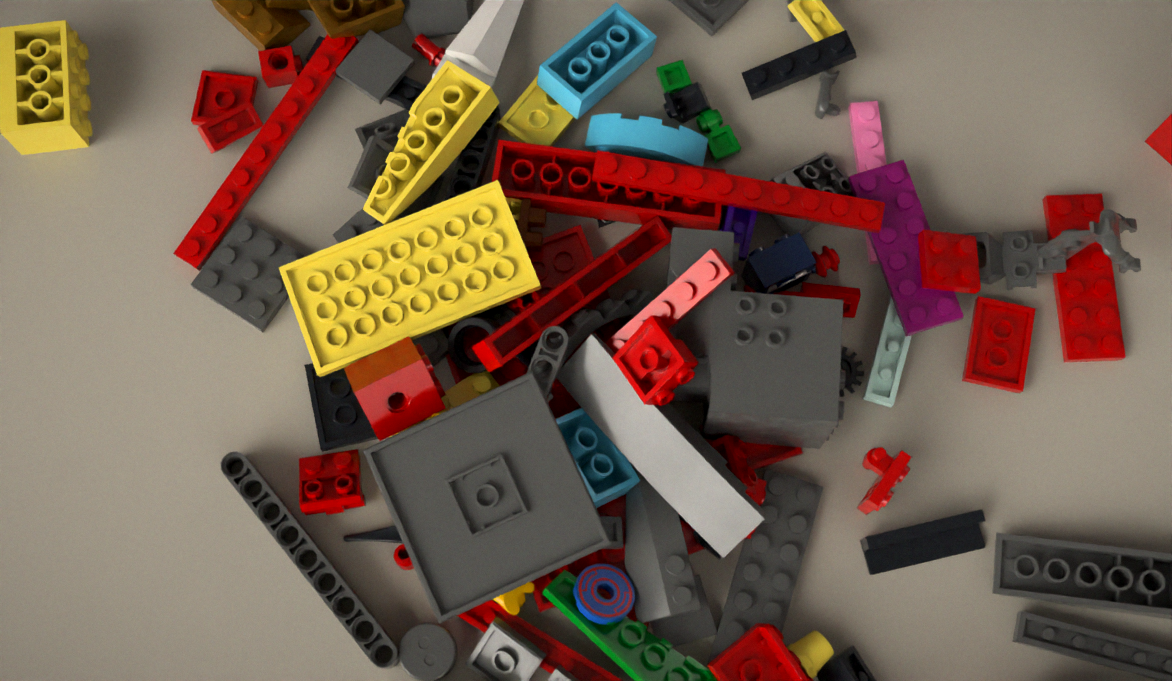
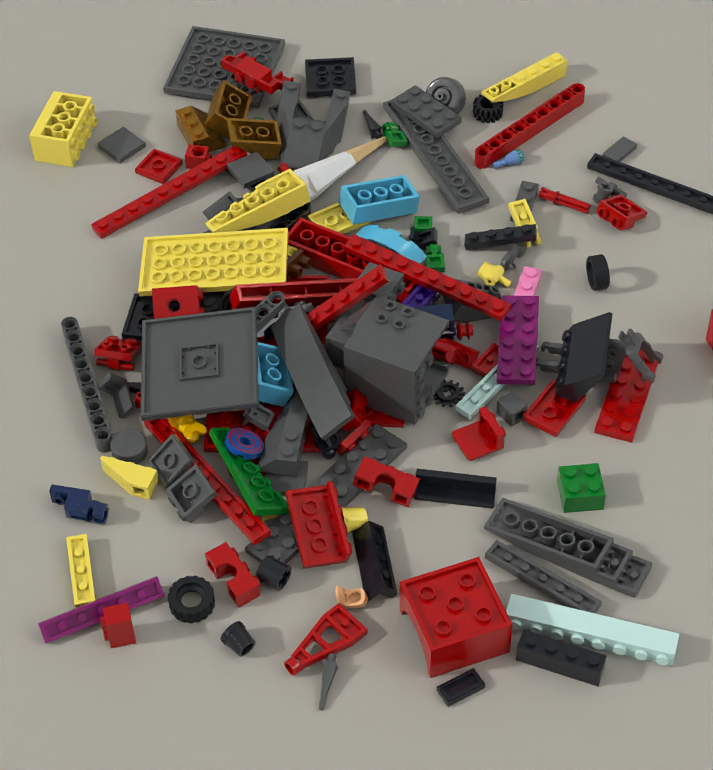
camera: 25 degrees right, 25 degrees down
(147, 79) = (121, 144): none -> dark grey tile
(230, 127) = (153, 173): red plate -> none
(246, 274) = (123, 246): dark grey plate -> none
(372, 560) = (120, 390): none -> dark grey bracket
(655, 362) = (326, 319): red plate -> none
(806, 574) = (372, 473): none -> red arch
(812, 135) = (492, 274): none -> light yellow piece
(874, 296) = (486, 361): none -> red plate
(890, 472) = (442, 445): red plate -> none
(922, 434) = (481, 436): none -> red bracket
(942, 370) = (511, 408): none -> dark grey brick
(949, 261) = (538, 348): red plate -> none
(964, 83) = (597, 272): none -> black tyre
(1031, 261) = (583, 357): none -> black slope
(1096, 475) = (581, 488): none -> green brick

